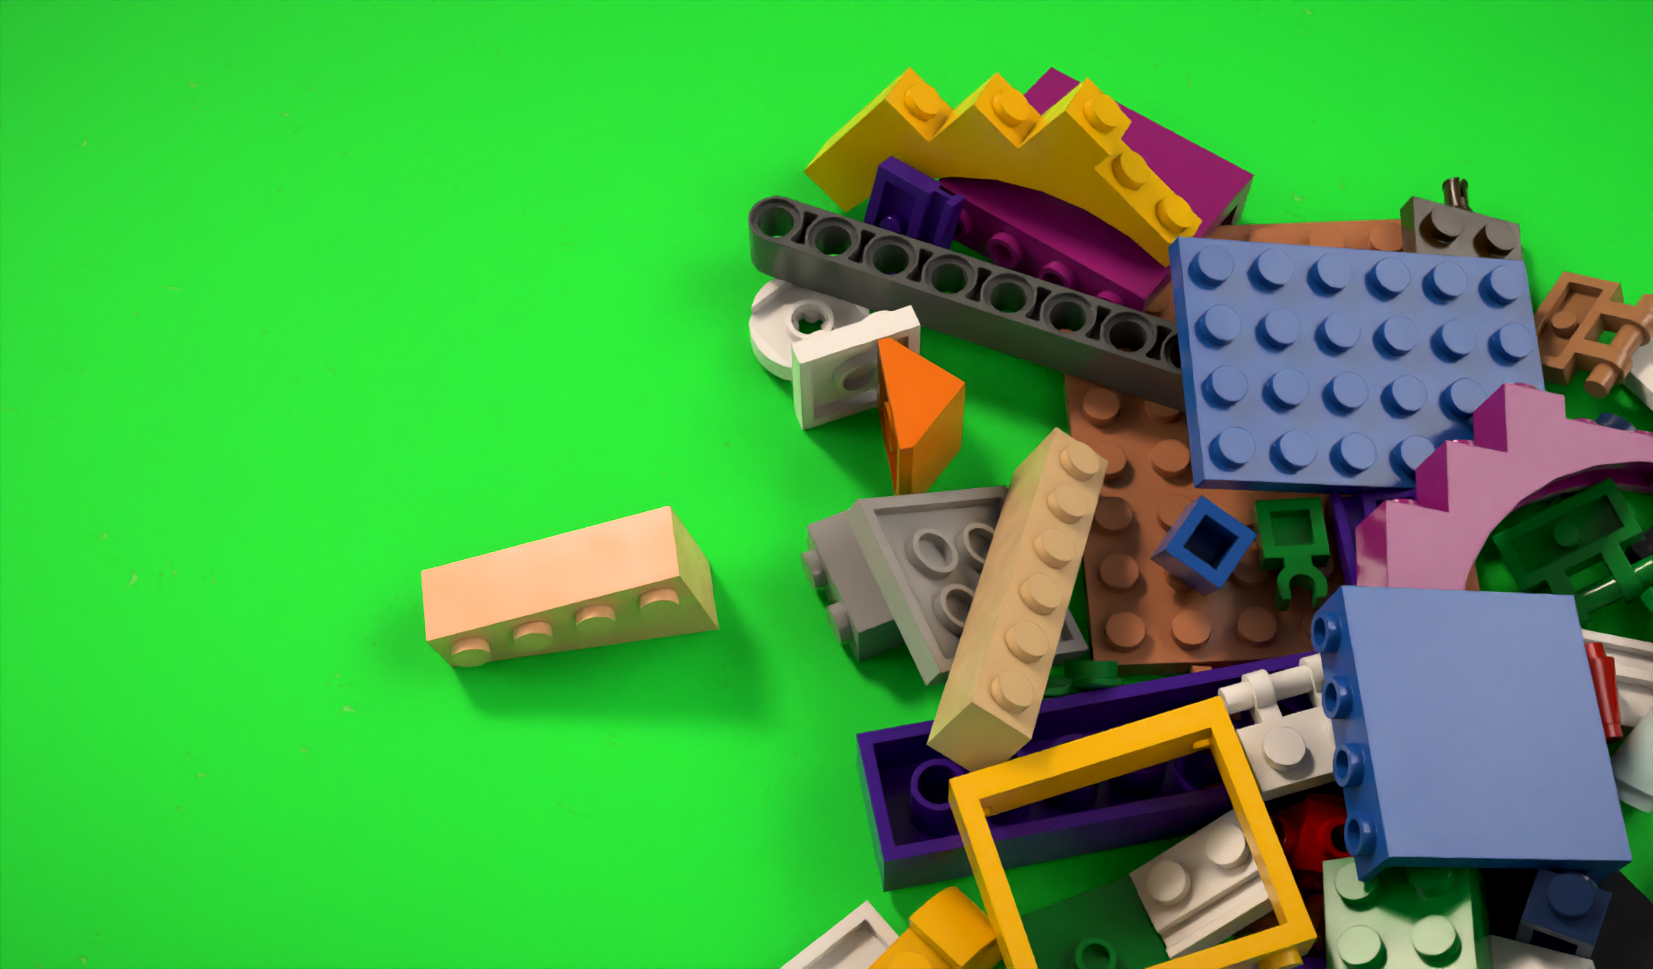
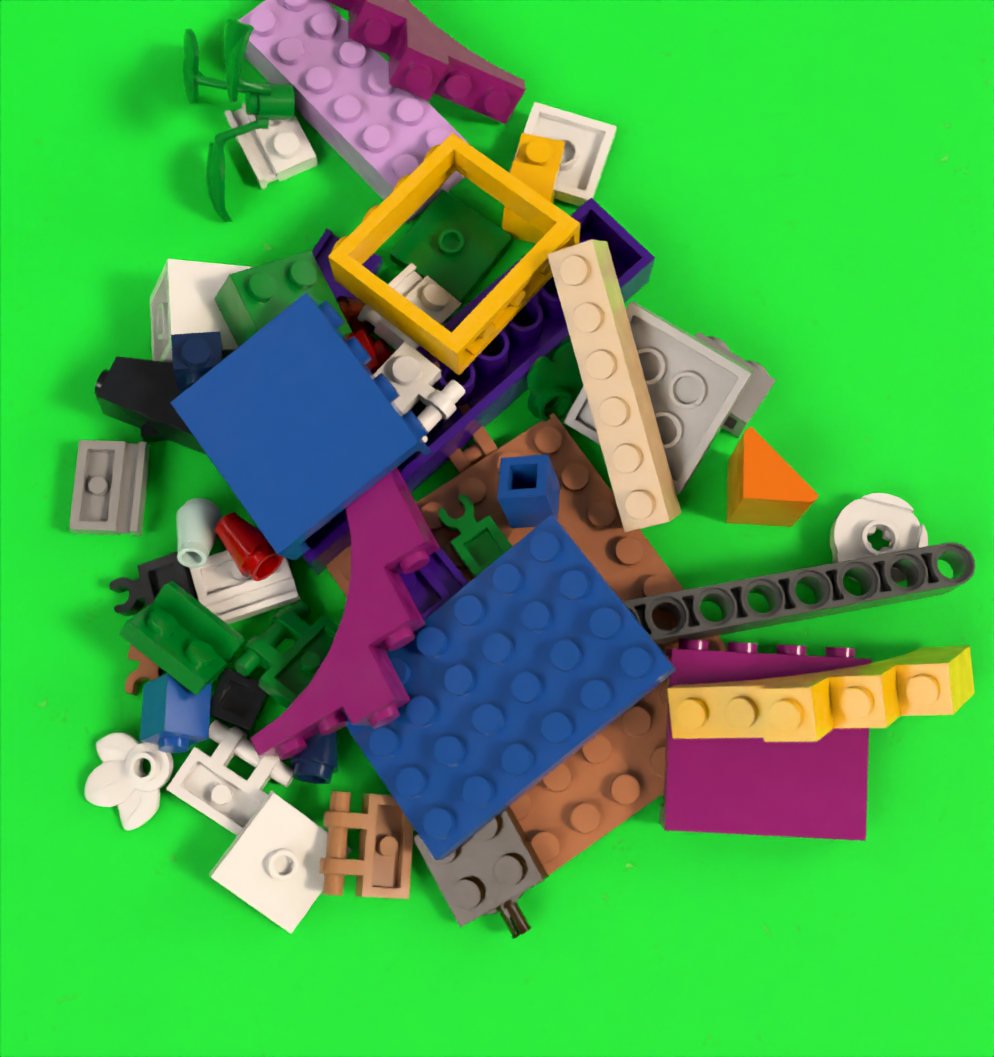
camera: 145 degrees right, 15 degrees up
(571, 592) = (873, 268): light nougat wedge -> none
(838, 368) = (824, 512): white plate -> none
(913, 205) = (874, 633): dark purple plate -> none

